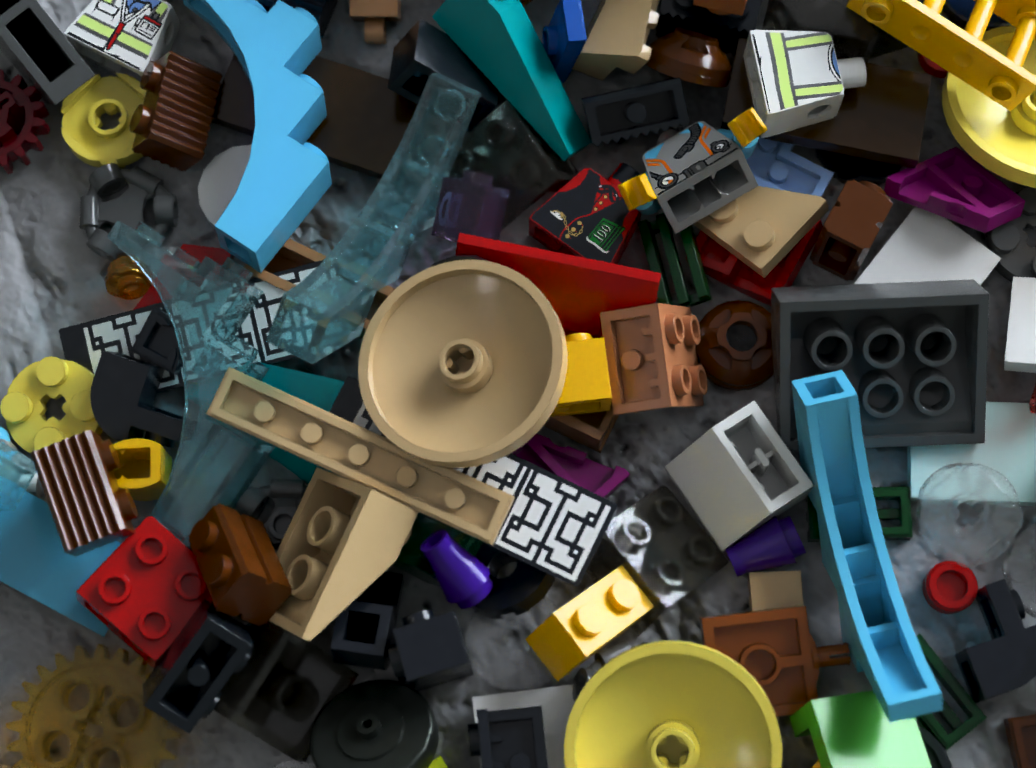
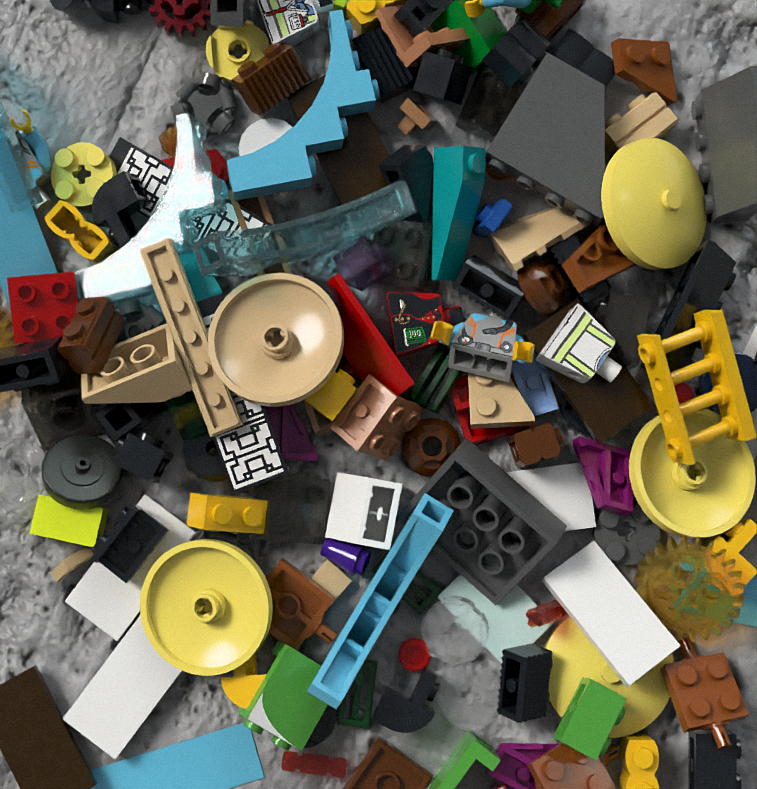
camera: 40 degrees right, 10 degrees up
(84, 492) = (50, 235): reddish brown brick -> none
(159, 342) = (155, 187): black tile -> none
(458, 572) = (187, 433): dark purple cone -> none

